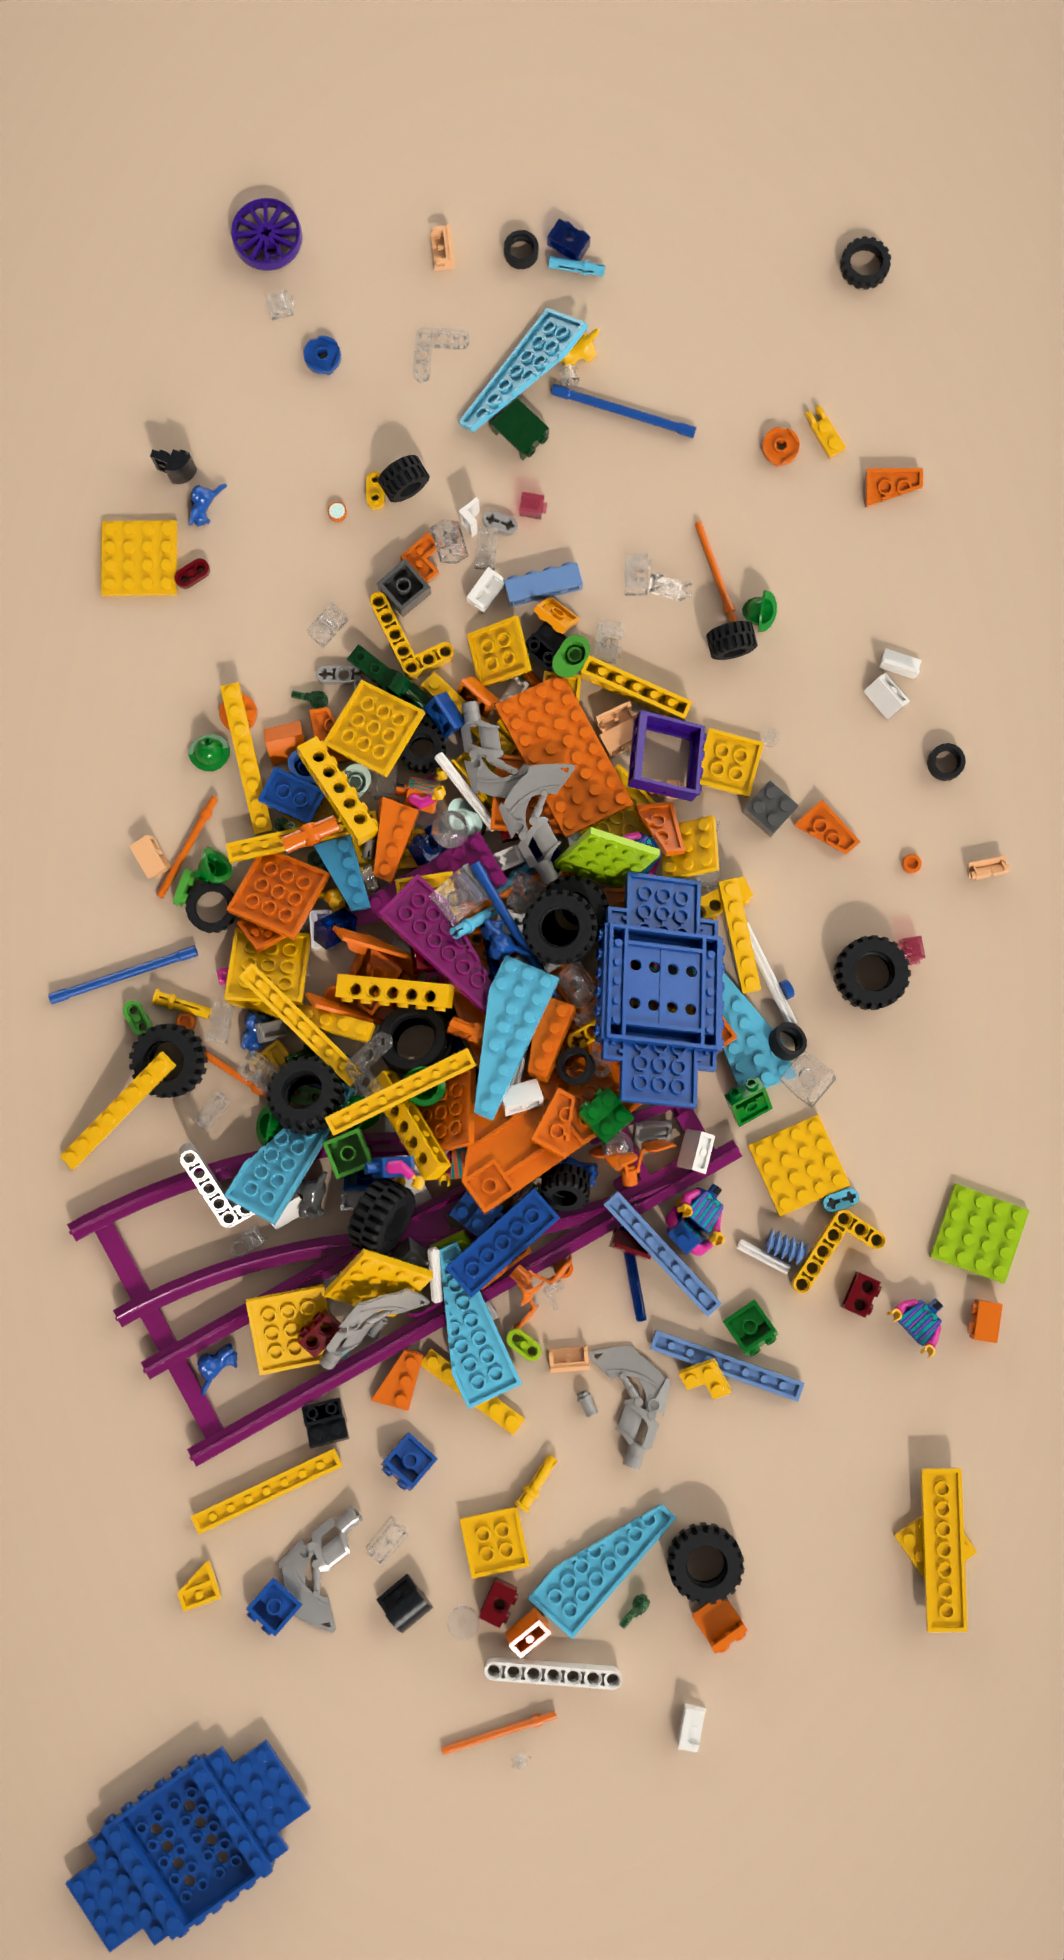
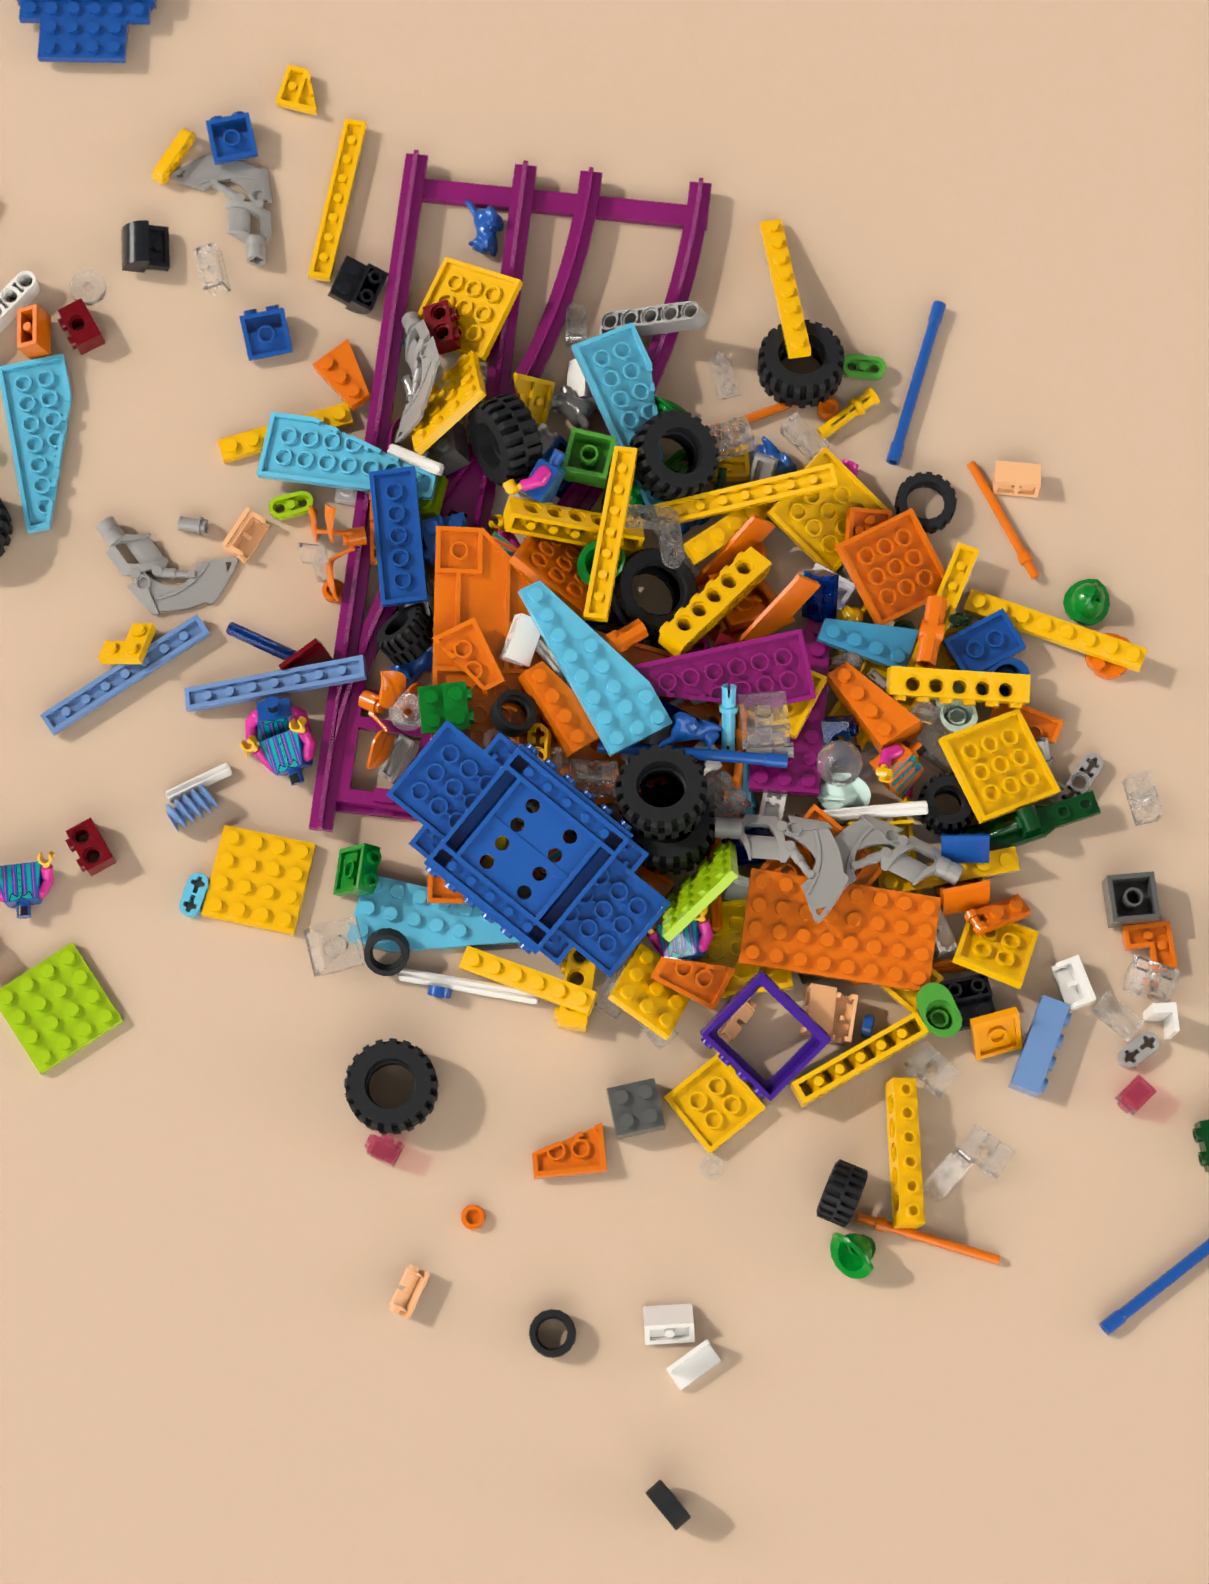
camera: 125 degrees right, 10 degrees down
(188, 879) = (966, 493): bright green plate -> none
(213, 867) = (964, 527): green helmet -> none
(283, 741) = (1049, 679): orange slope -> none
(317, 699) = (1070, 738): clear green plate -> none
(317, 1640) = (173, 156): none -> yellow beam
(325, 1230) = (535, 394): none -> yellow wing
(335, 713) = (1043, 744): none -> light grey pin
(371, 800) = (926, 712): none -> clear plate
(402, 643) = (1074, 862): yellow beam -> none
(475, 665) = (997, 914): none -> orange plate
(494, 1542) = (135, 360): yellow plate -> none
(531, 1490) = (154, 422): yellow pin -> none
(608, 700) = (867, 1026): none -> blue tile
(675, 621) = (904, 1153): none -> yellow brick
(695, 1150) = (346, 781): white panel -> none
(751, 1328) = (141, 720): green plate -> none
(791, 448) = (1034, 1401): orange plate -> none
(825, 433) = (1006, 1475): yellow hinge -> none
(830, 1245) = (160, 852): yellow beam -> none
(890, 483) = (901, 1505): orange wing -> none
(997, 617) = (668, 1504): none -> black tyre

